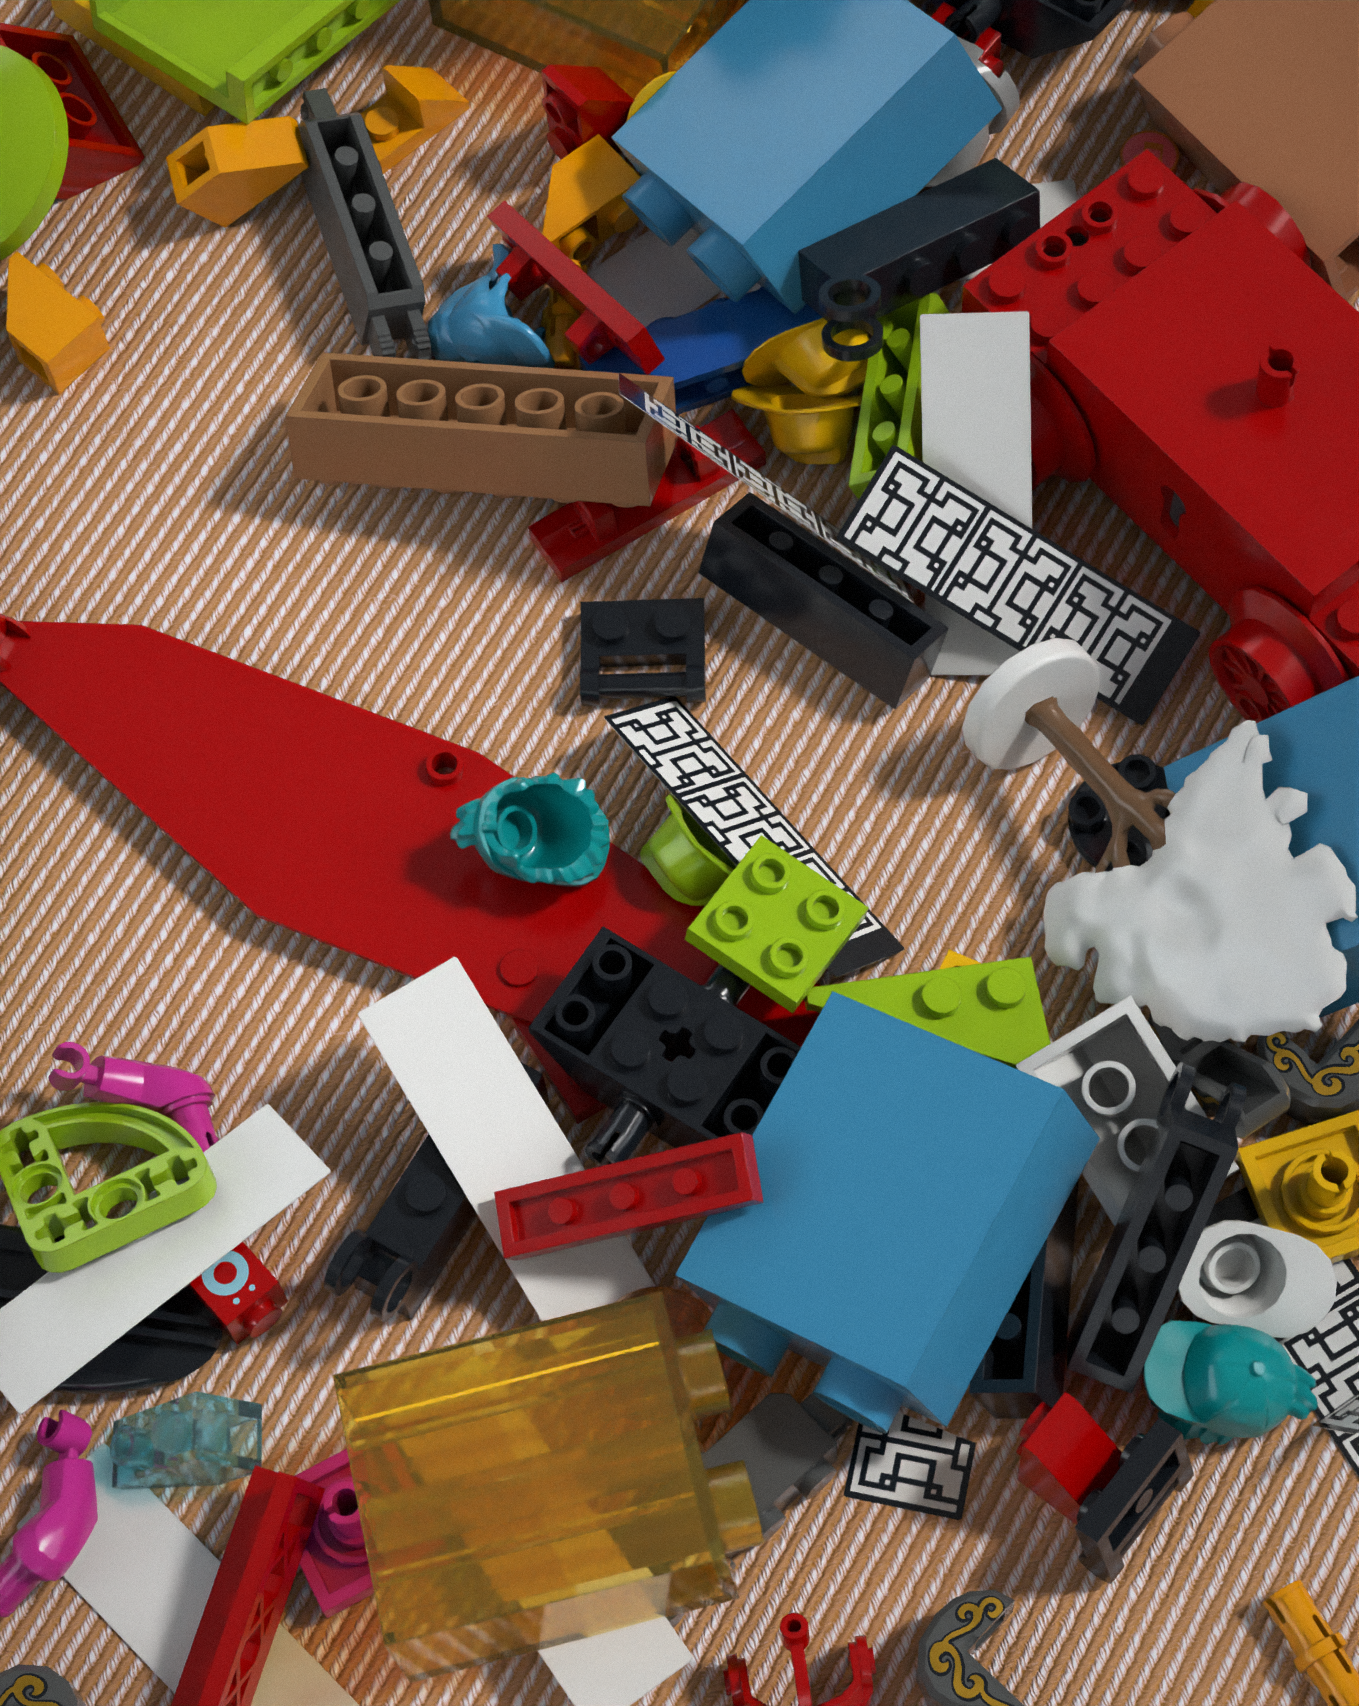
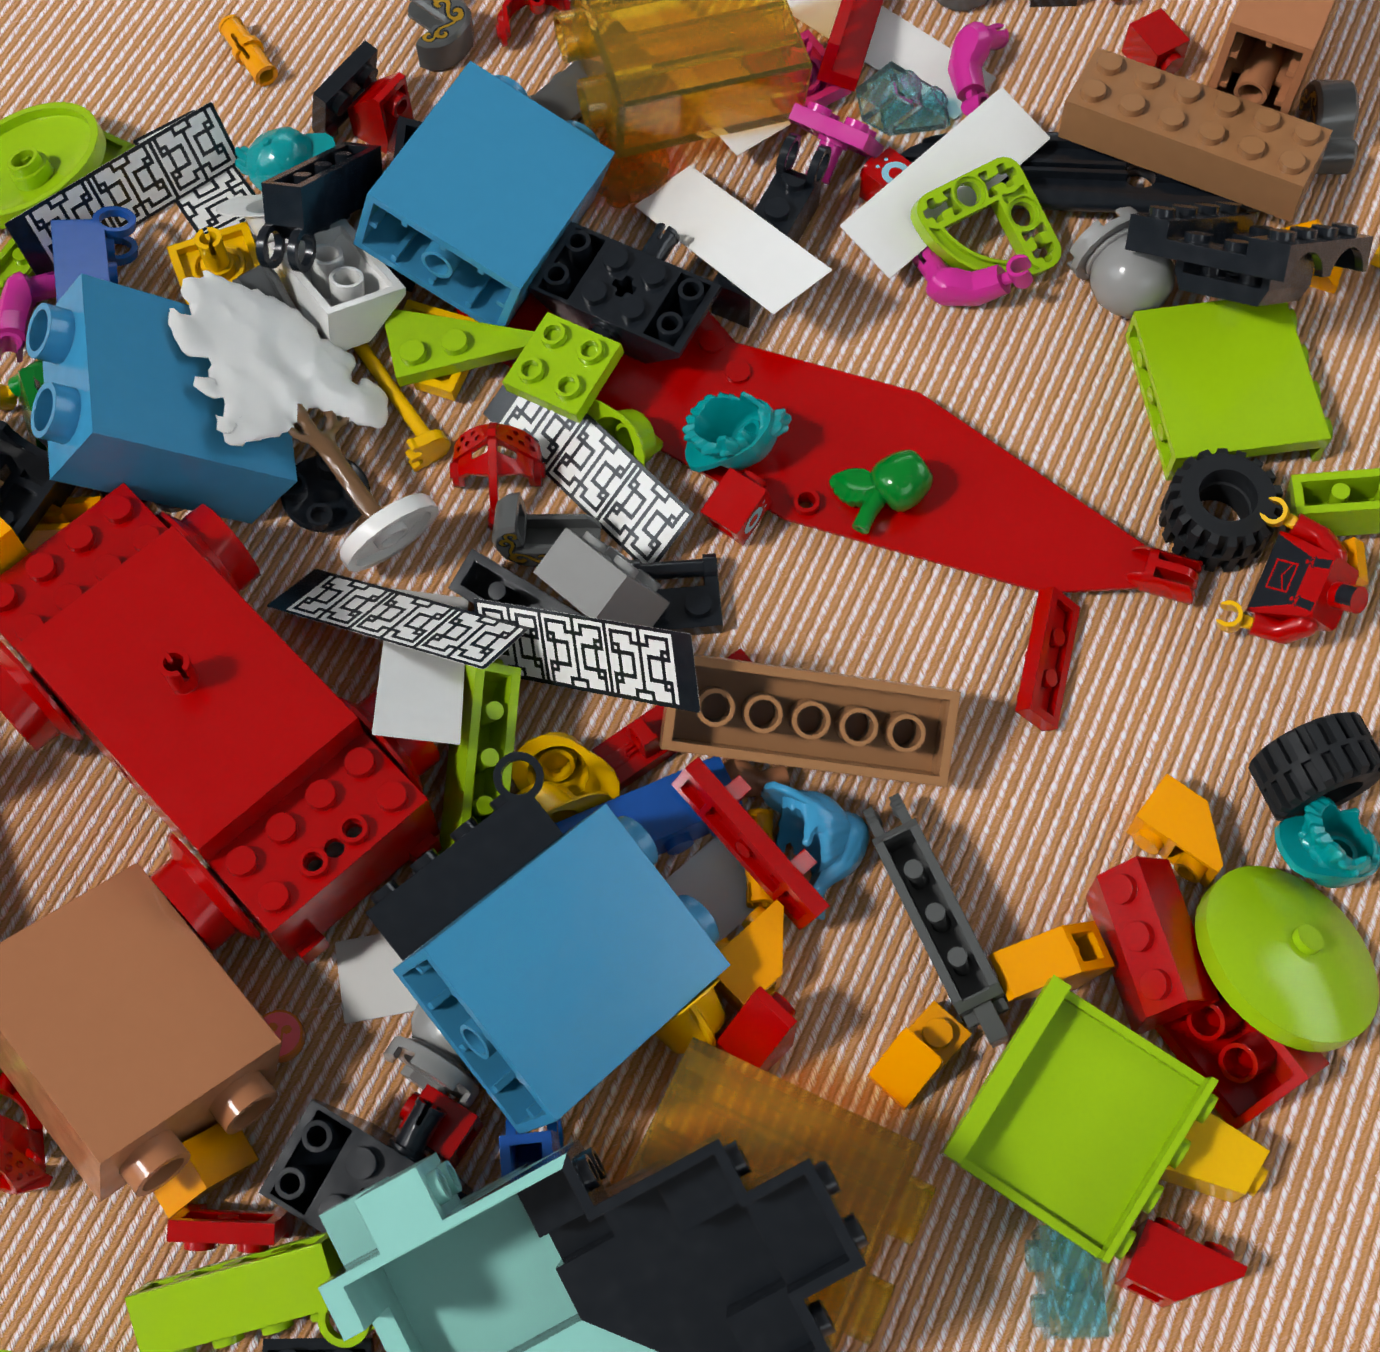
camera: 170 degrees right, 0 degrees up
(117, 171) = (1150, 942): none -> red slope
(159, 535) = (1047, 659): none -> red plate
(296, 1349) = (835, 134): none -> dark pink plate
(319, 753) = (896, 479): none -> green piece
(544, 742) = (737, 504): none -> red brick
(629, 1196) = (646, 186): red plate -> none
(737, 604) = (600, 580): none -> light grey brick
(815, 723) = (529, 537): none -> dark grey animal
(882, 816) = (493, 463): none -> red helmet
(981, 882) = (427, 445): none -> yellow piece

